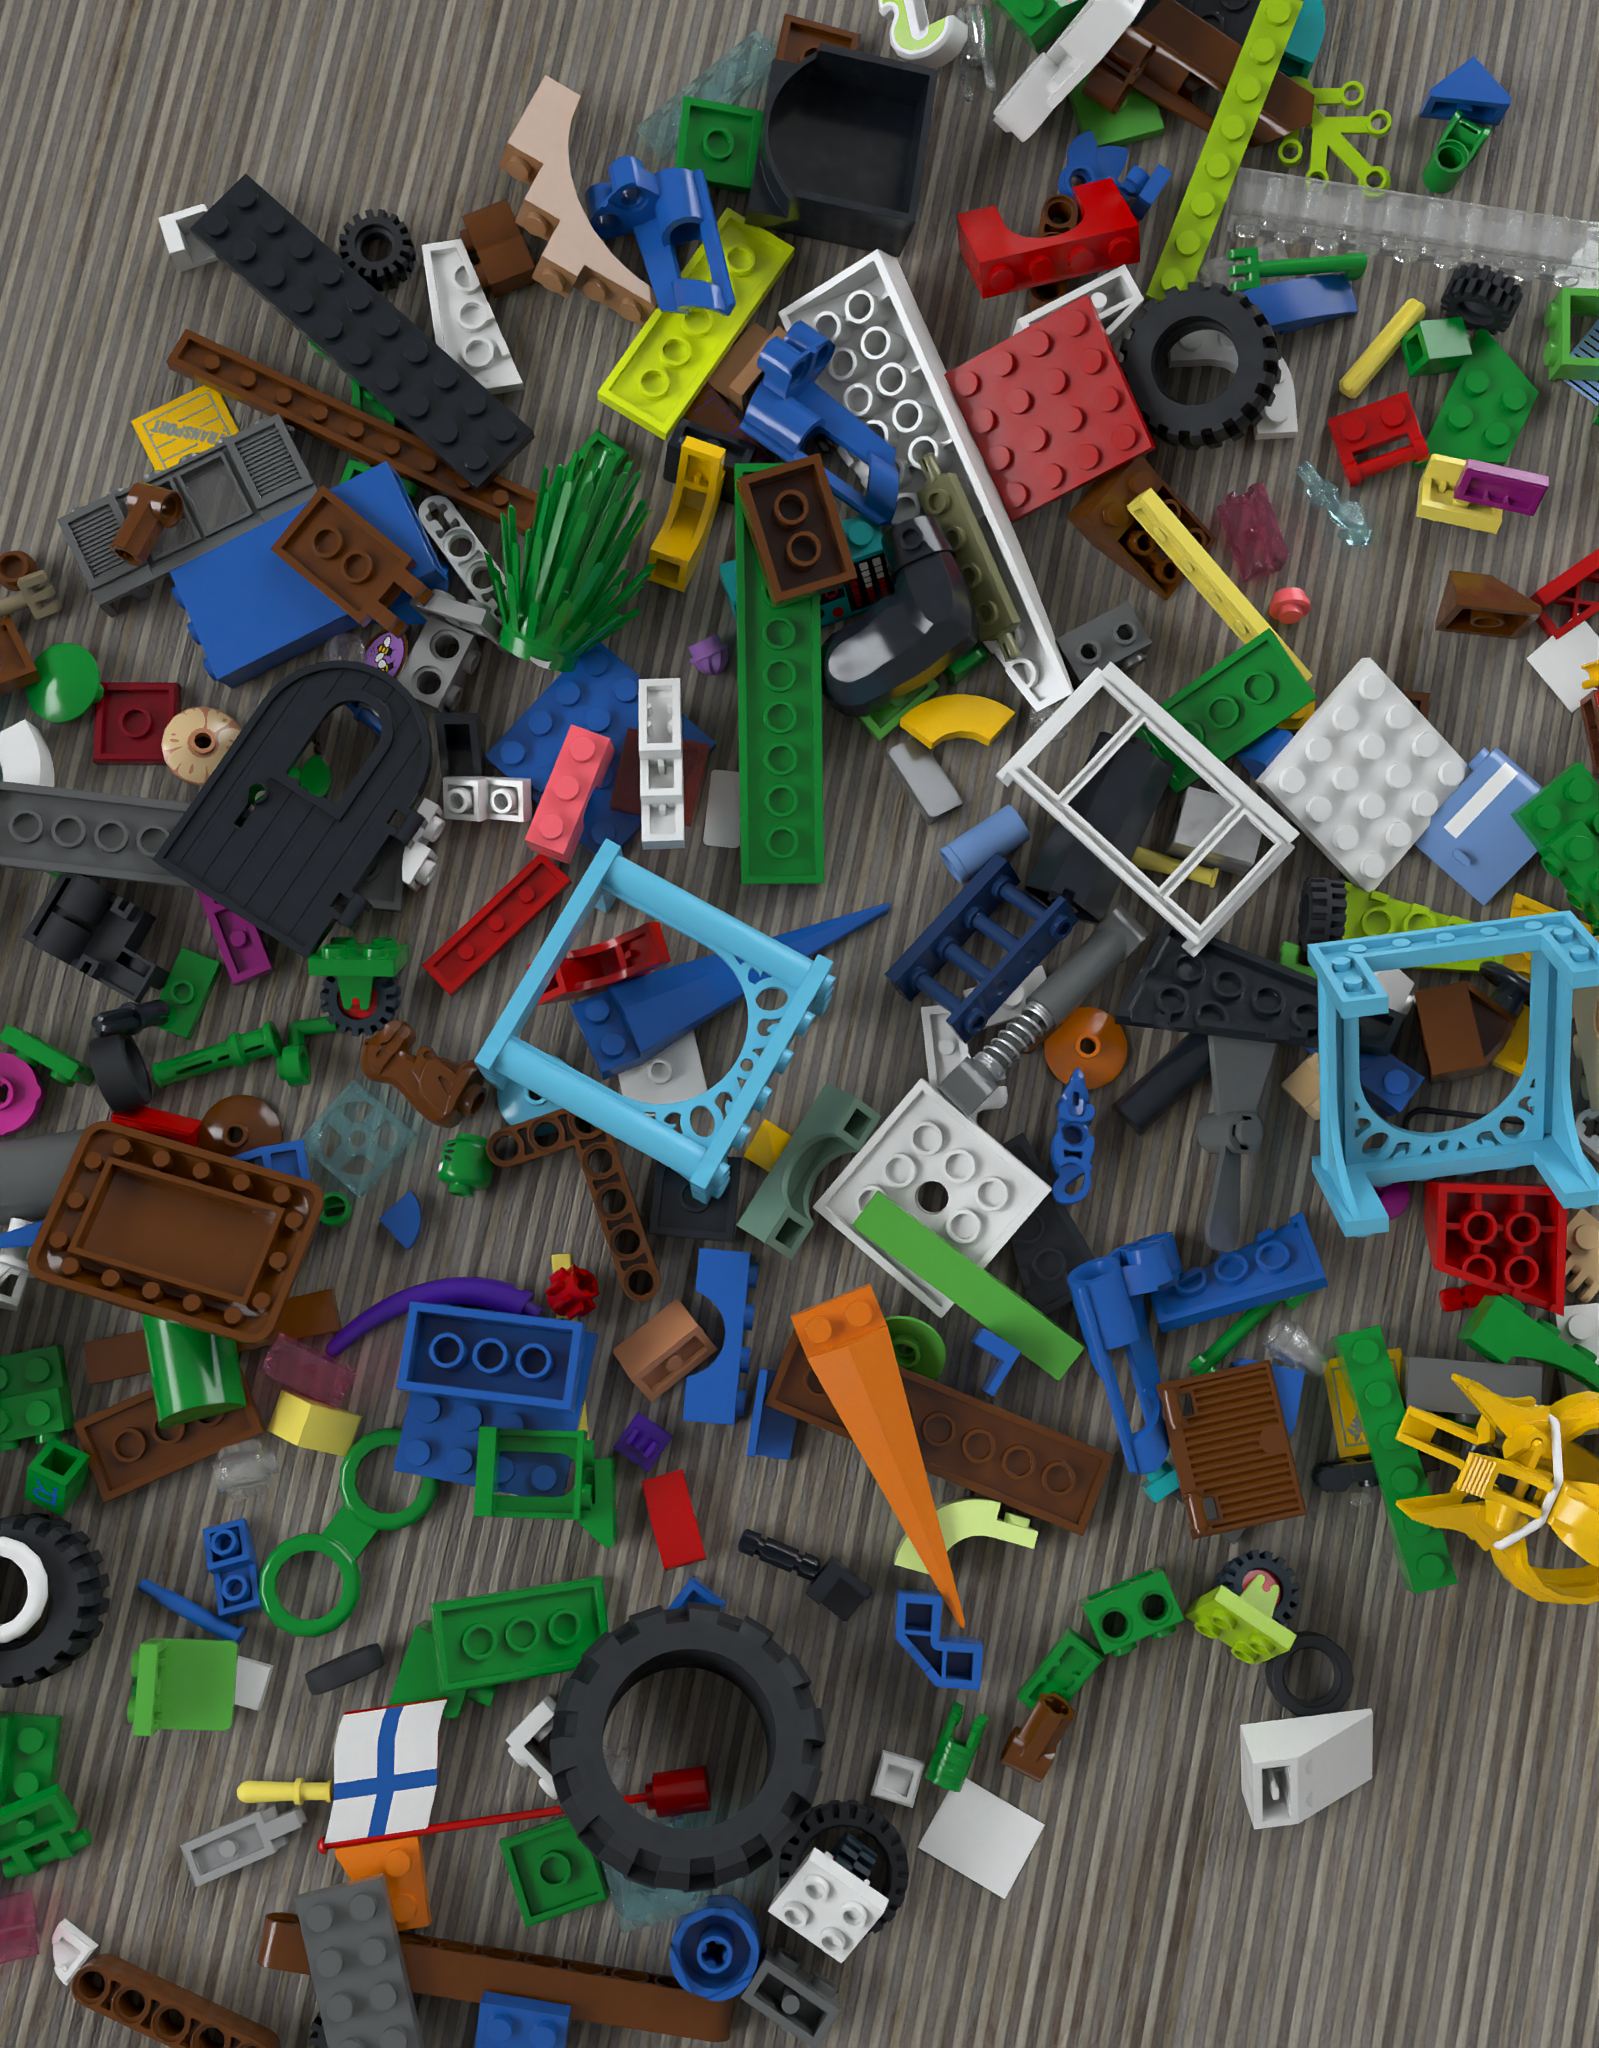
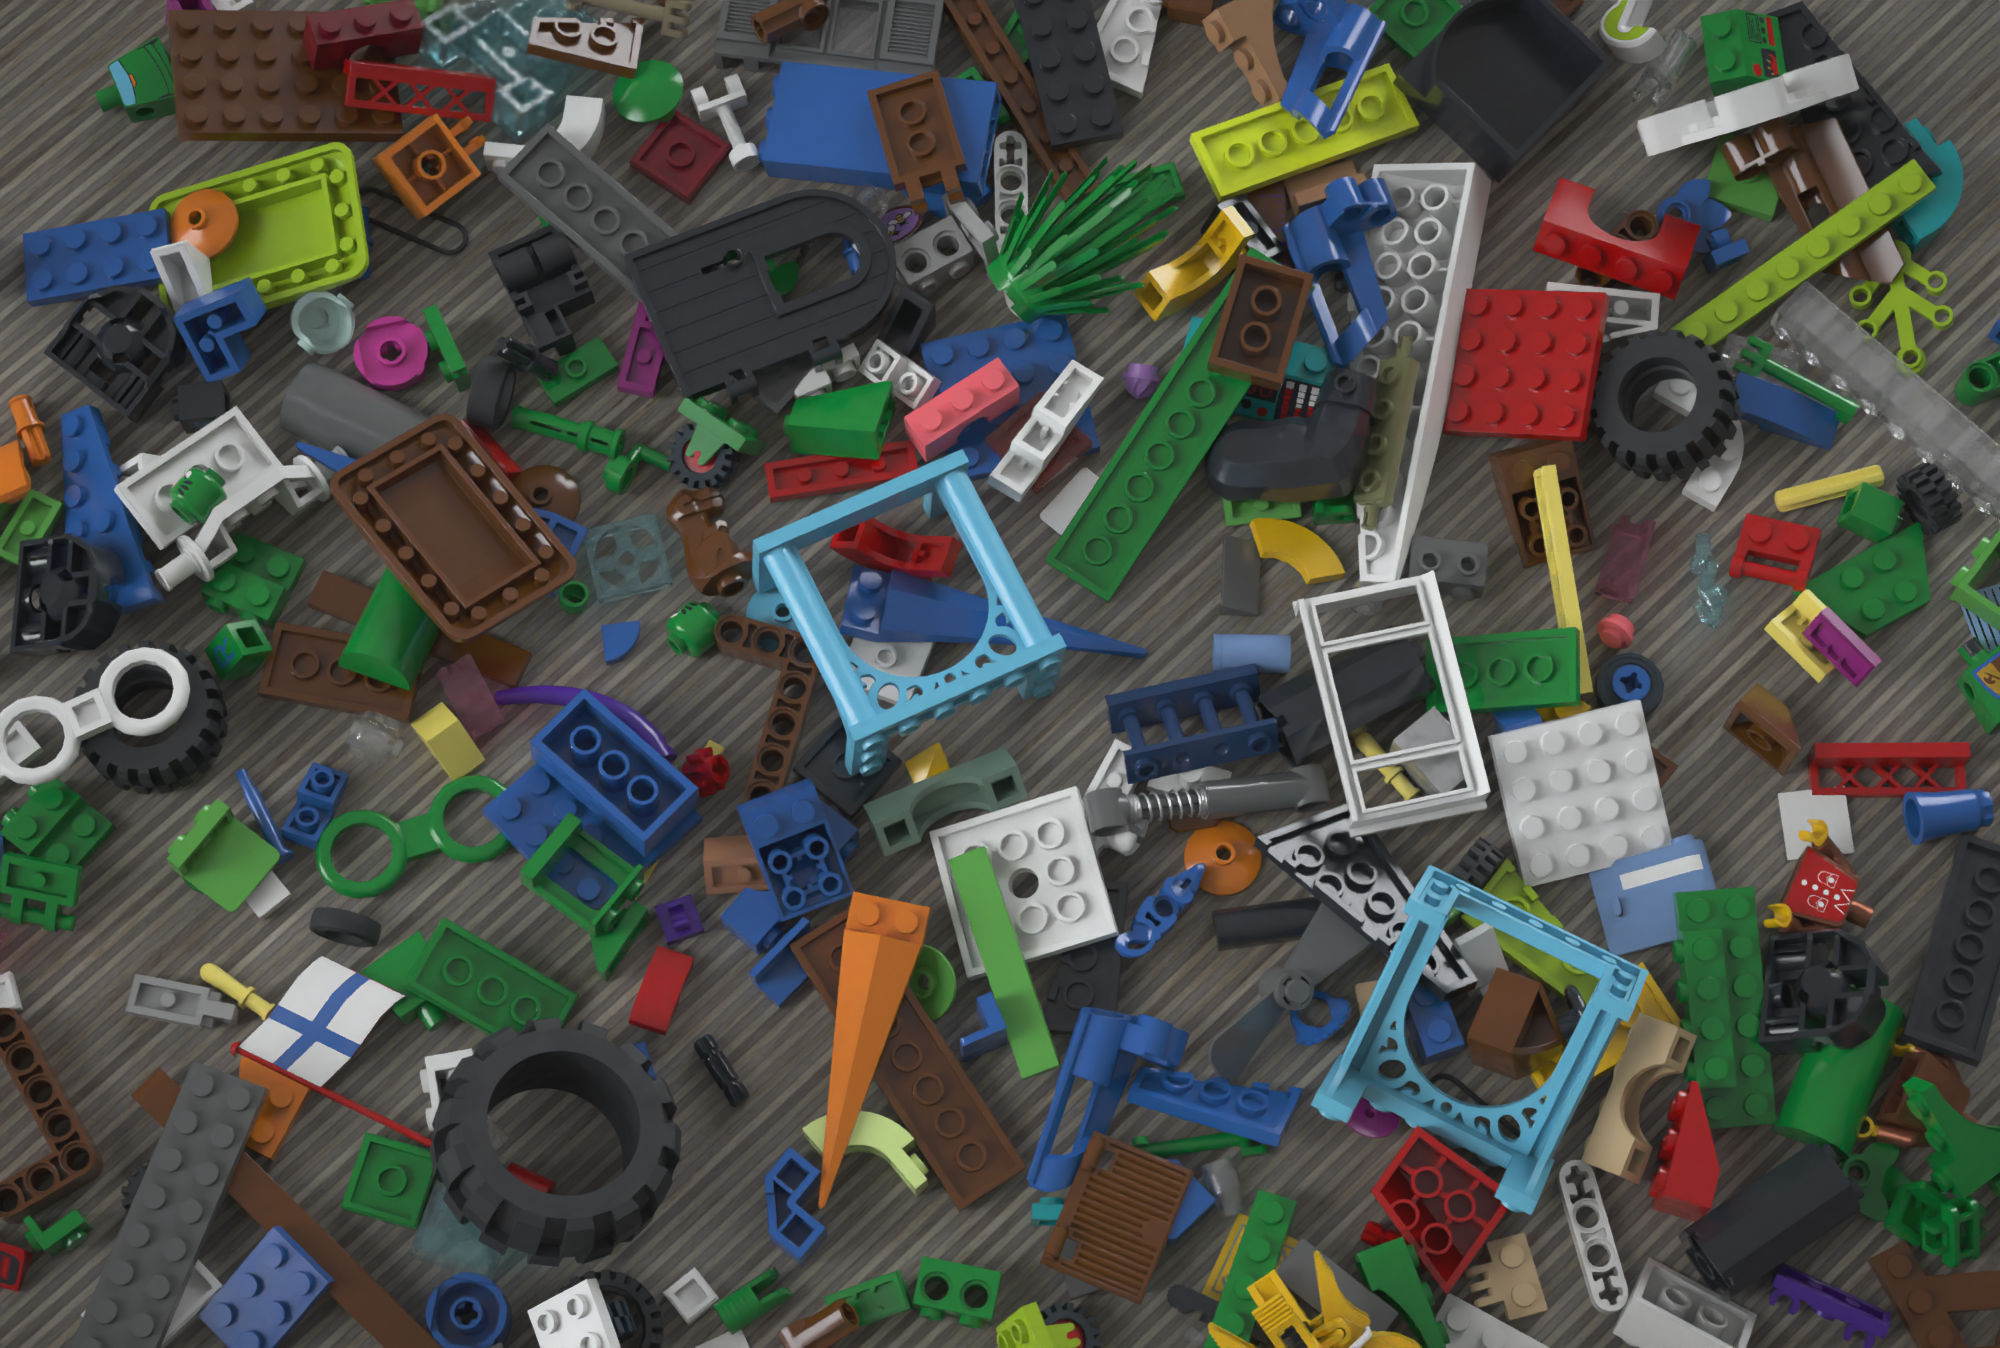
camera: 30 degrees right, 10 degrees down
(179, 746) = (699, 191): tan dish -> none
(195, 684) = (744, 155): none -> white bar
(467, 878) = (842, 422): none -> green slope
(708, 1313) = (795, 849): none -> blue slope
(838, 1589) = (747, 1124): black panel -> none
(1289, 1120) = (1308, 1035): none -> blue piece
(1323, 658) = (1635, 669): none -> black wheel

